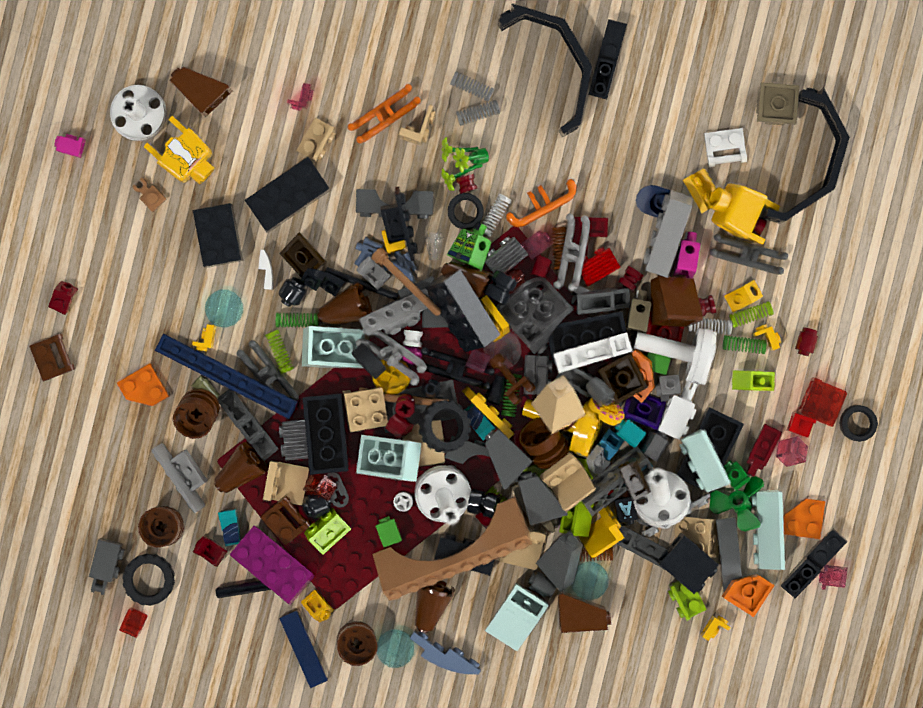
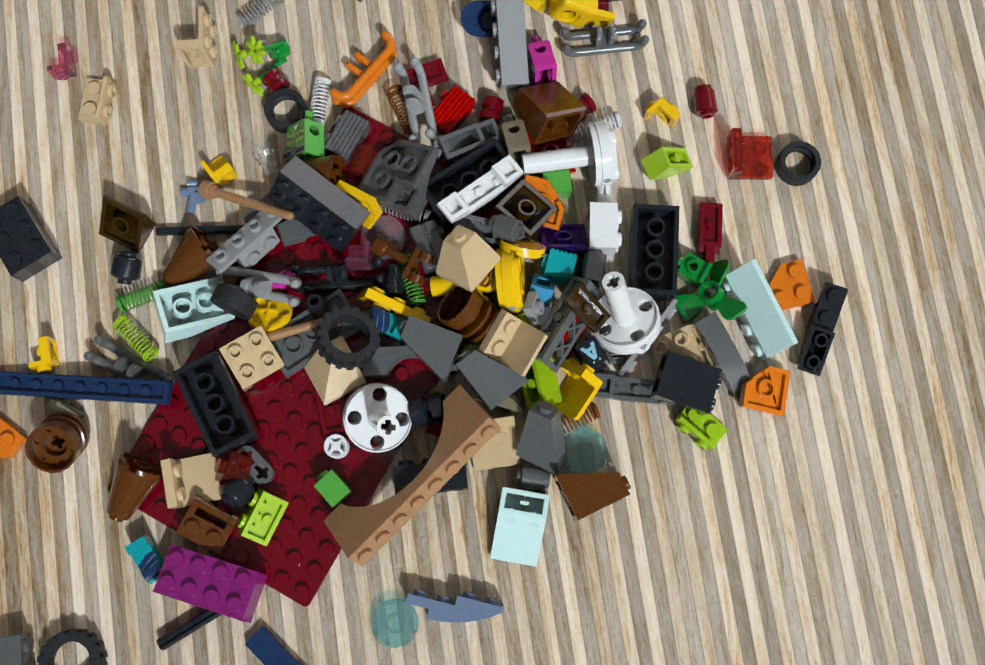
camera: 30 degrees left, 10 degrees down
(150, 526) = (61, 592): reddish brown wheel -> none
(183, 473) = (71, 520): light grey bracket -> none
(210, 550) = (132, 597): dark red bracket -> none
(224, 308) = (57, 316): clear light blue tile -> none
(247, 424) = (126, 432): dark grey slope -> none
(265, 264) = (87, 252): white slope -> none
(287, 195) = (83, 166): black brick -> none
(294, 440) = (183, 428): flat silver brick -> none
(314, 278) = (152, 240): black slope -> none
(317, 606) = (284, 611): yellow bracket -> none
(354, 654) = (340, 649): reddish brown wheel -> none
(373, 272) = (207, 211): light grey bracket -> none
(384, 114) = (161, 47): orange piece -> none
(388, 458) = (298, 400): light aqua brick -> none
(396, 223) = (212, 146): black bracket -> none
(399, 426) = (296, 359): dark red brick -> none
(404, 264) = (239, 187): sand blue piece -> none
(406, 401) = (296, 330): dark red wheel -> none
(412, 338) = (277, 261): white wheel -> none
(419, 204) = (230, 124): dark grey arch -> none
(431, 604) = (414, 552): reddish brown cone -> none
(500, 287) = (350, 166): black wheel -> none
(537, 243) = (376, 111): clear pink bracket -> none
(542, 267) = (390, 131): dark red brick -> none
(668, 386) = (577, 202): light grey bracket -> none
(704, 461) = (655, 257): light aqua slope -> none
(711, 629) = (743, 449): yellow bracket -> none
(743, 296) = (616, 83): yellow bracket -> none
(763, 349) = (659, 122): bright green piece -> none
(769, 308) = (650, 87): lime piece -> none
(792, 451) = (742, 220): clear pink panel -> none
(800, 424) = (738, 188): red panel -> none
(833, 576) = (849, 335): clear pink bracket -> none

